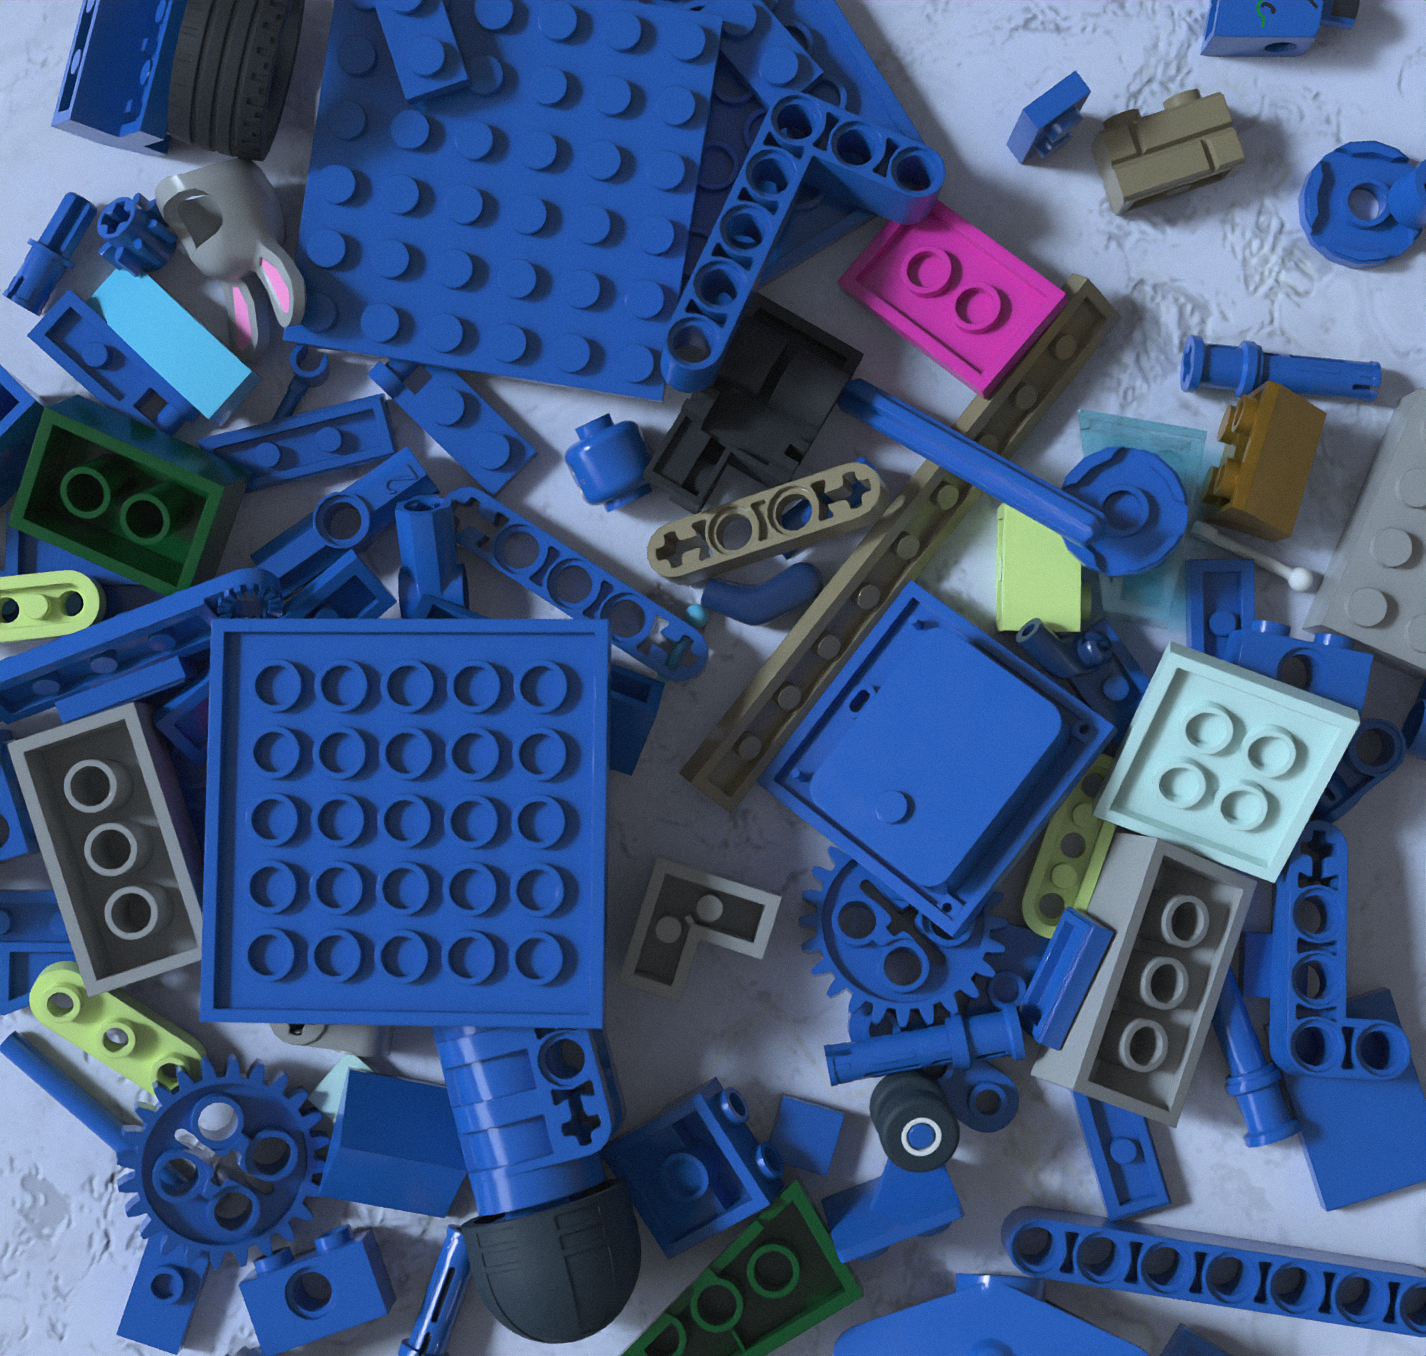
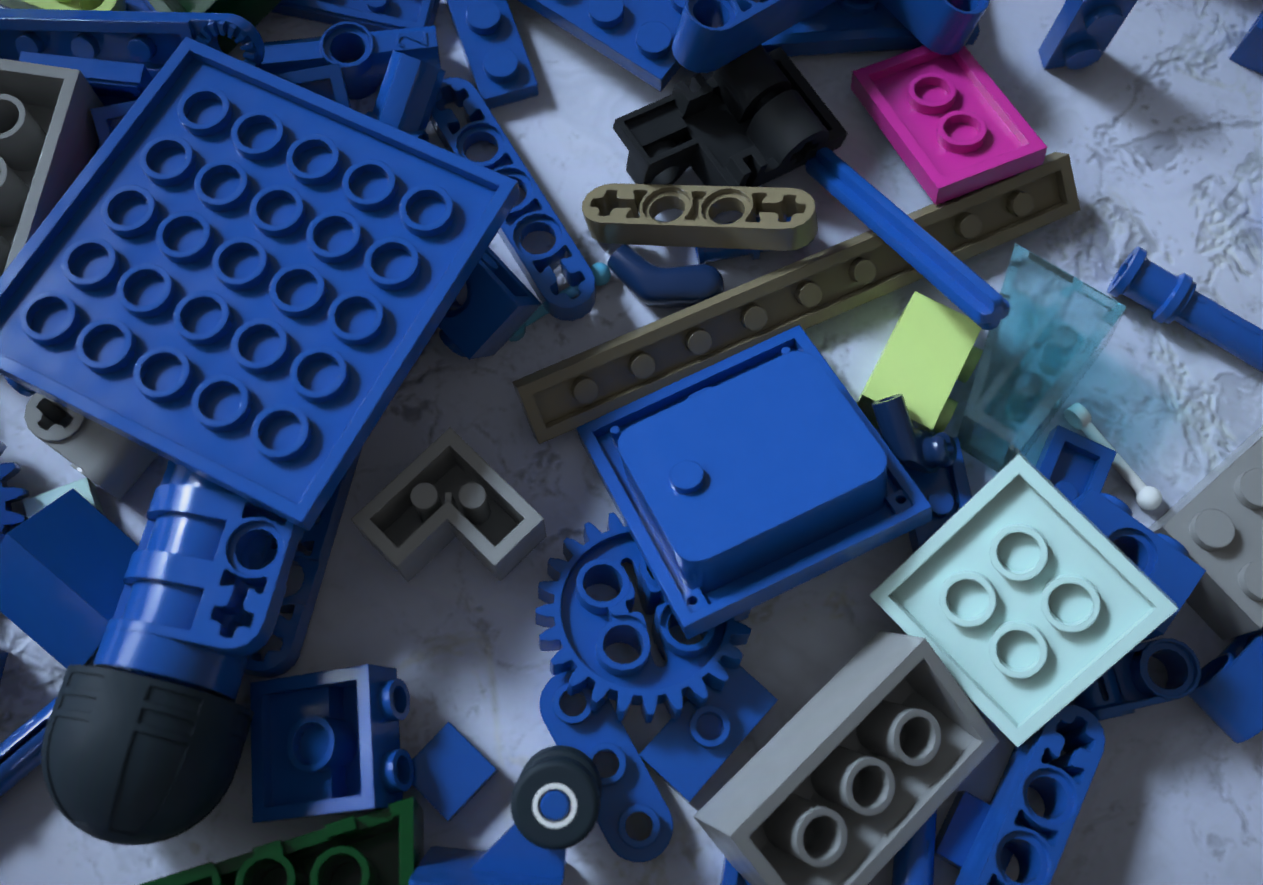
camera: 20 degrees right, 15 degrees down
(610, 462) = (587, 116): blue head -> none
(955, 1042) = (635, 744): blue pin -> none
(1063, 977) = (770, 733): blue tile -> none
(1067, 877) = (807, 643): yellowish green plate -> none
(1142, 509) = (1031, 348): blue tile -> none
(1167, 151) = (1175, 103): dark tan brick -> none
(1263, 463) = (1162, 370): pearl gold slope -> none

